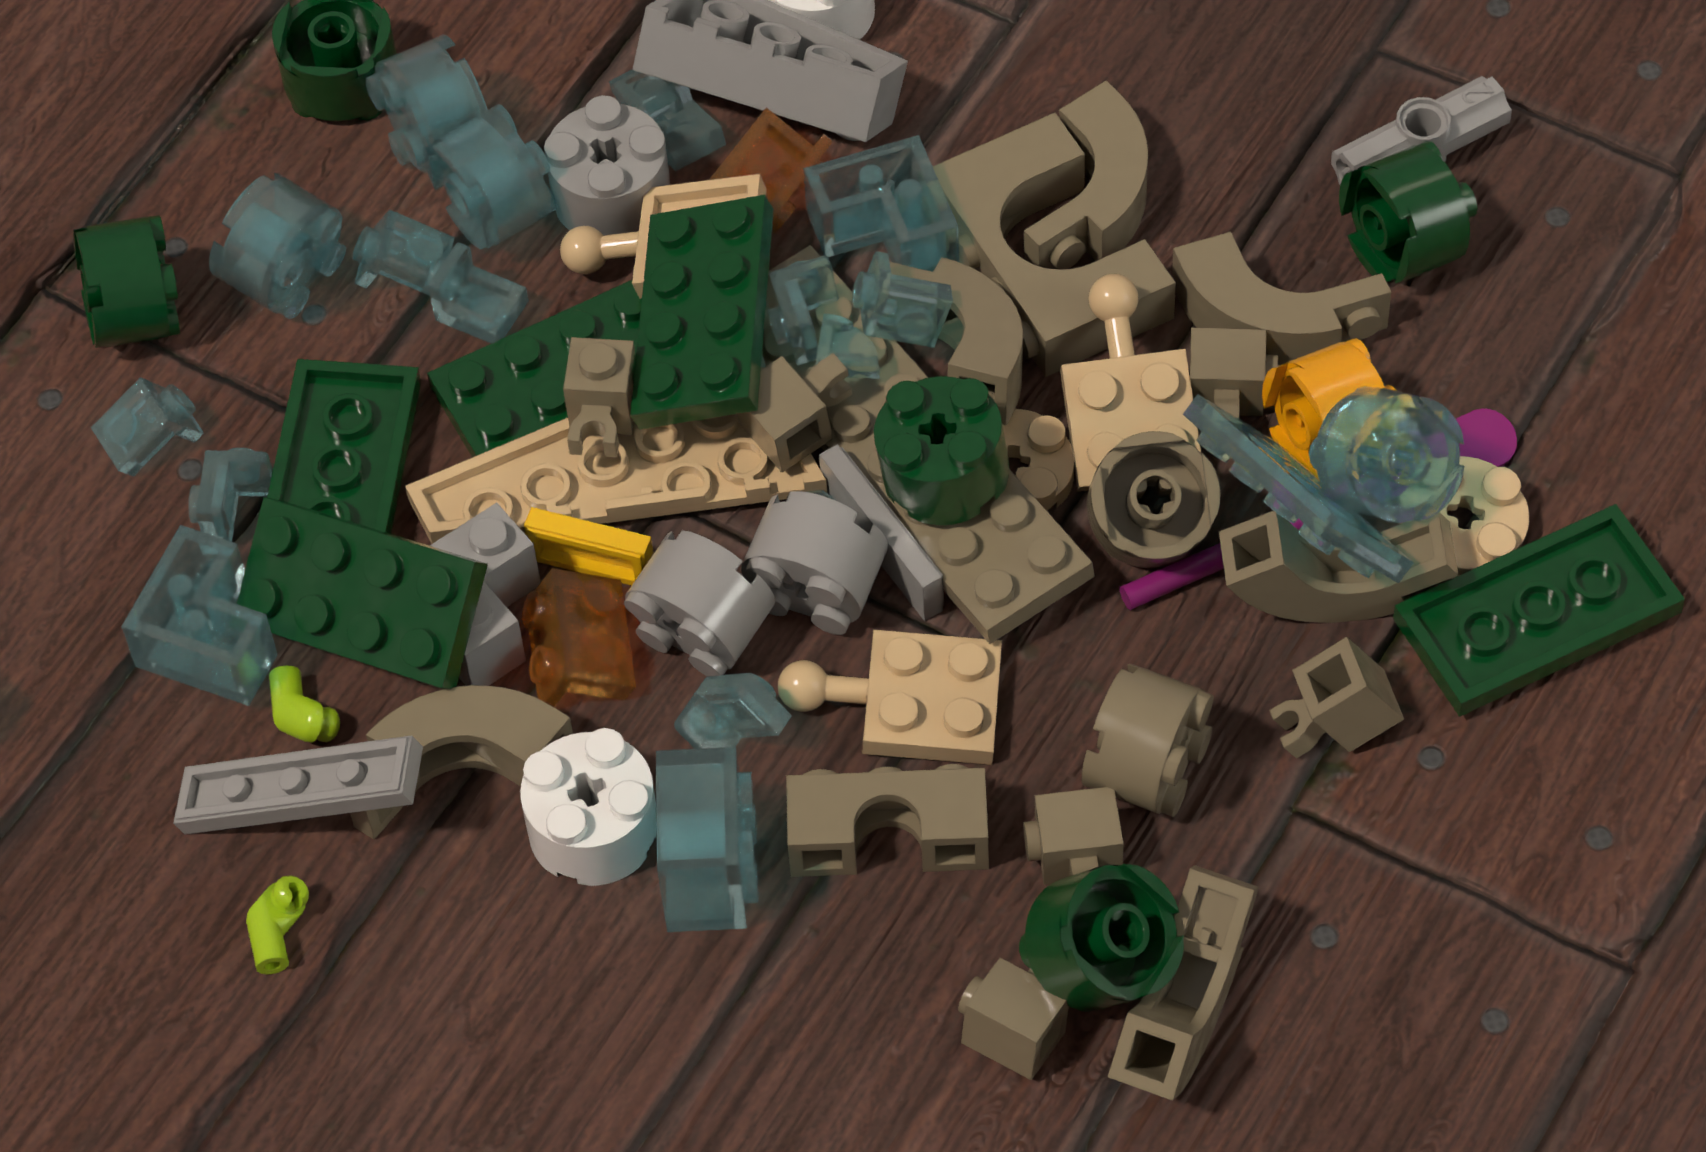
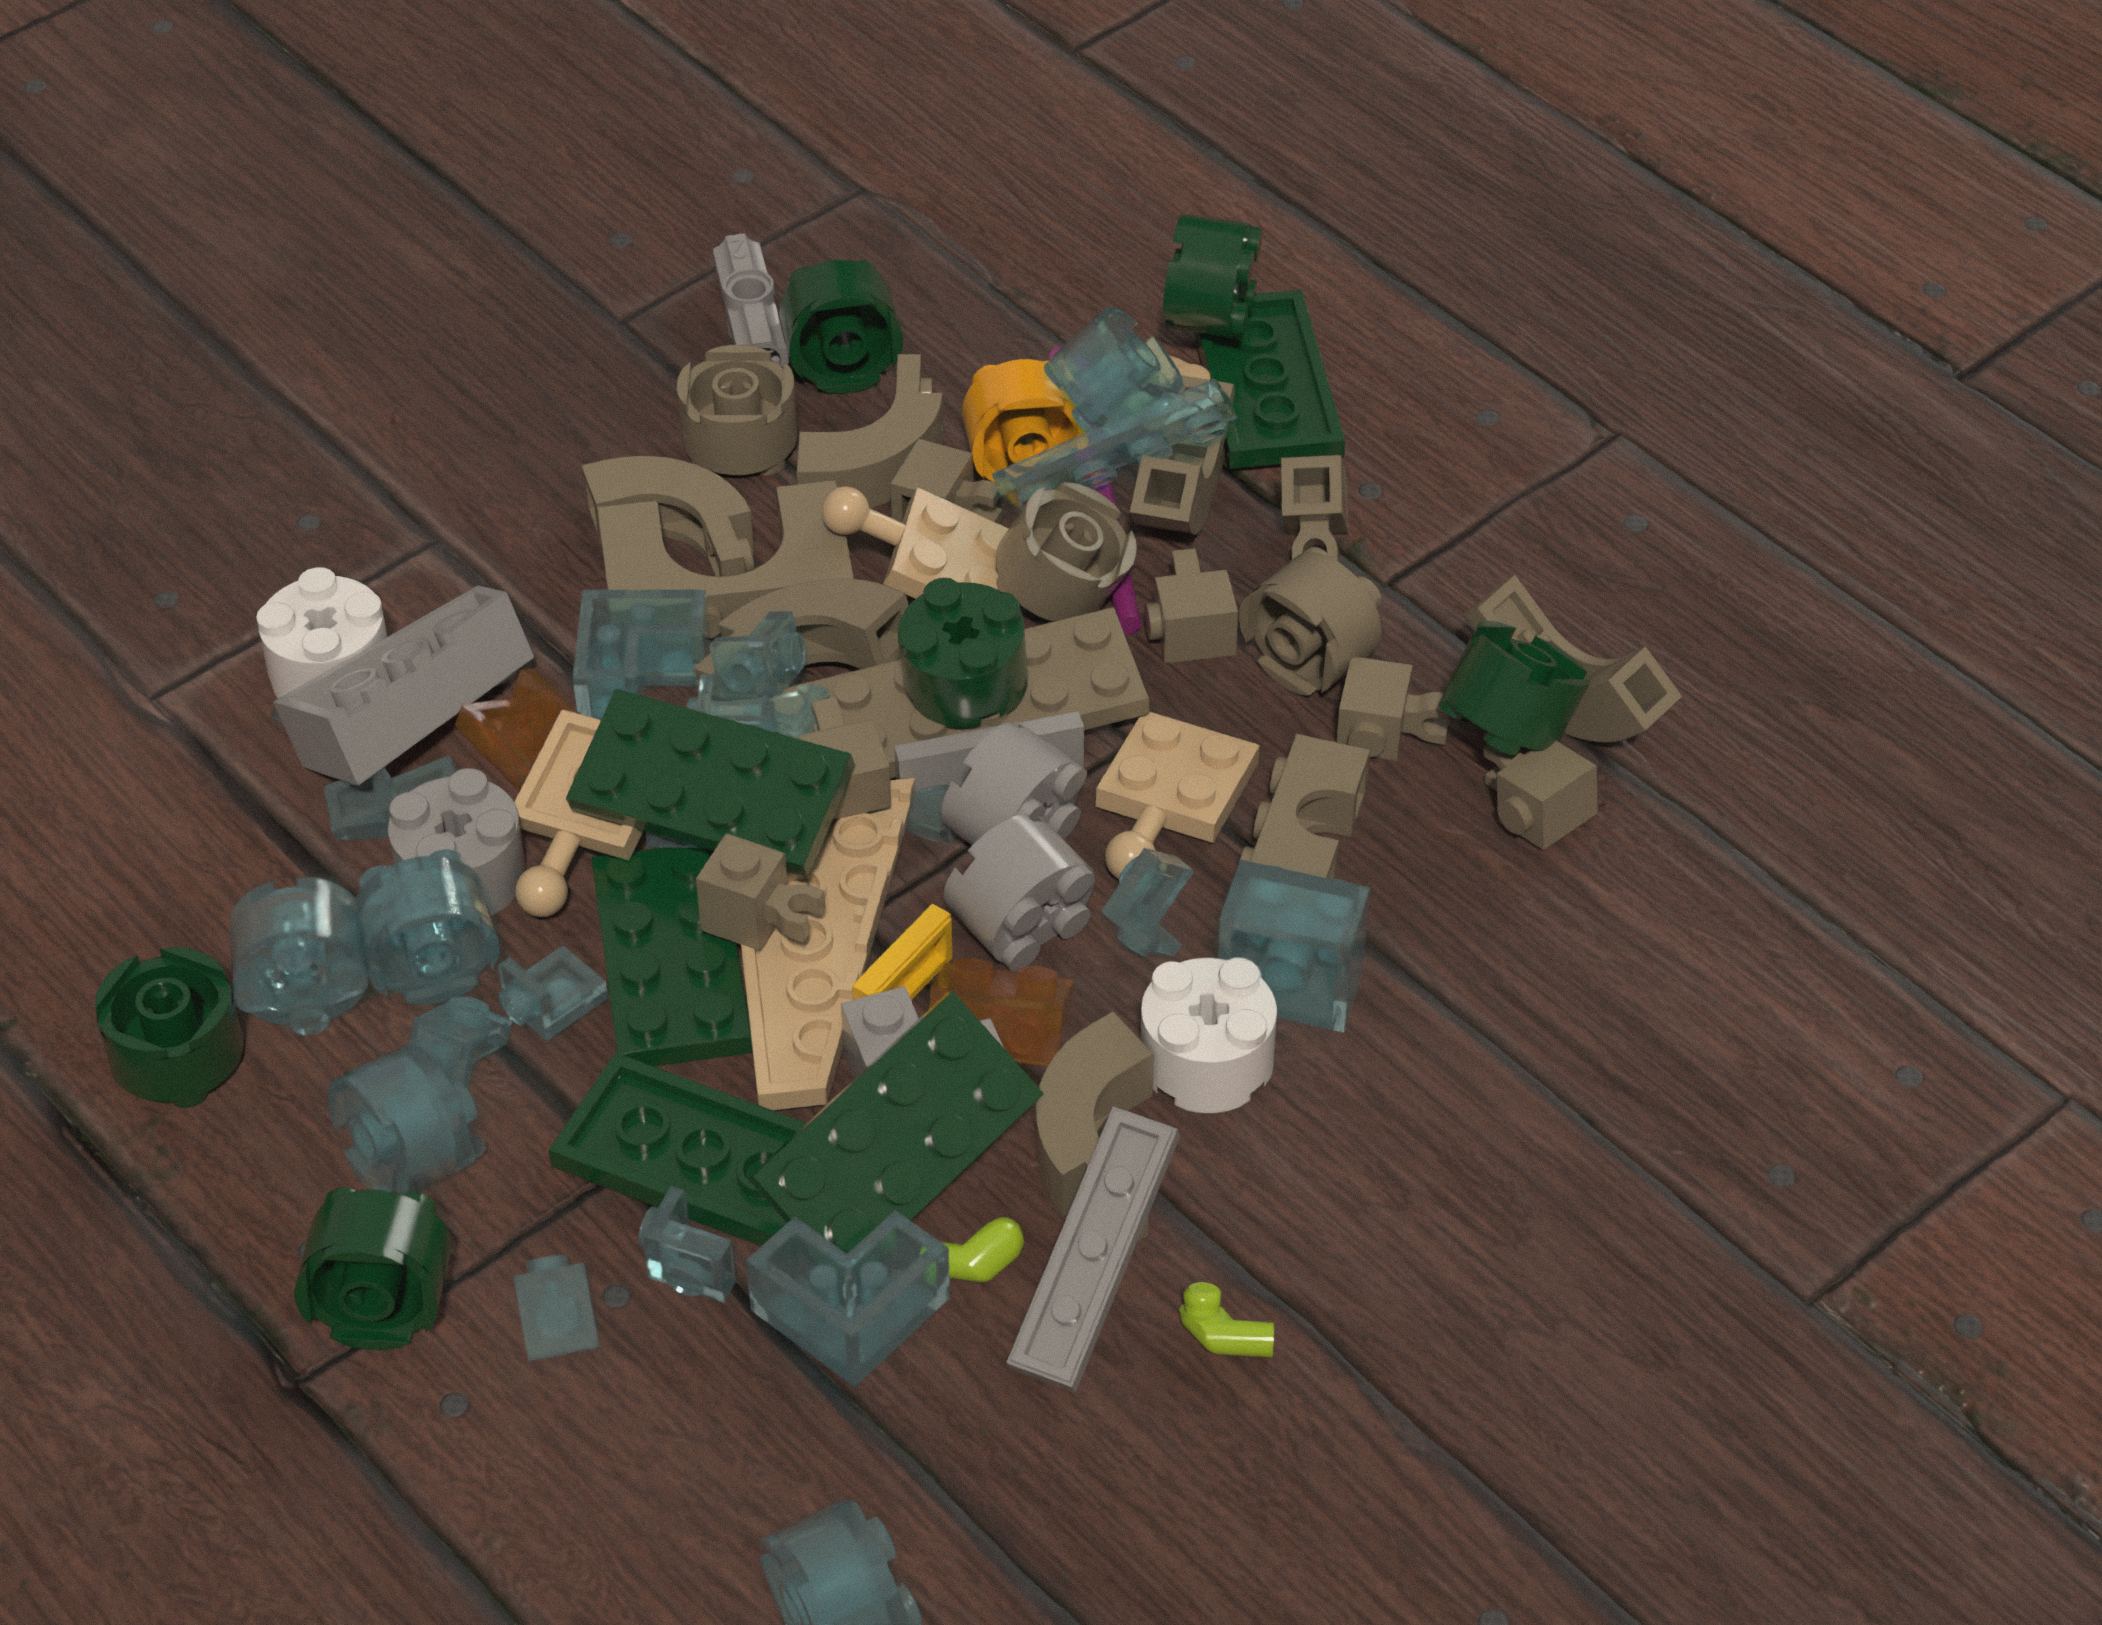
camera: 75 degrees left, 10 degrees down
(1149, 635) = (1192, 612): none -> dark tan brick
(1251, 175) = (737, 411): none -> dark tan brick
(1599, 493) = (1211, 276): none -> dark green brick

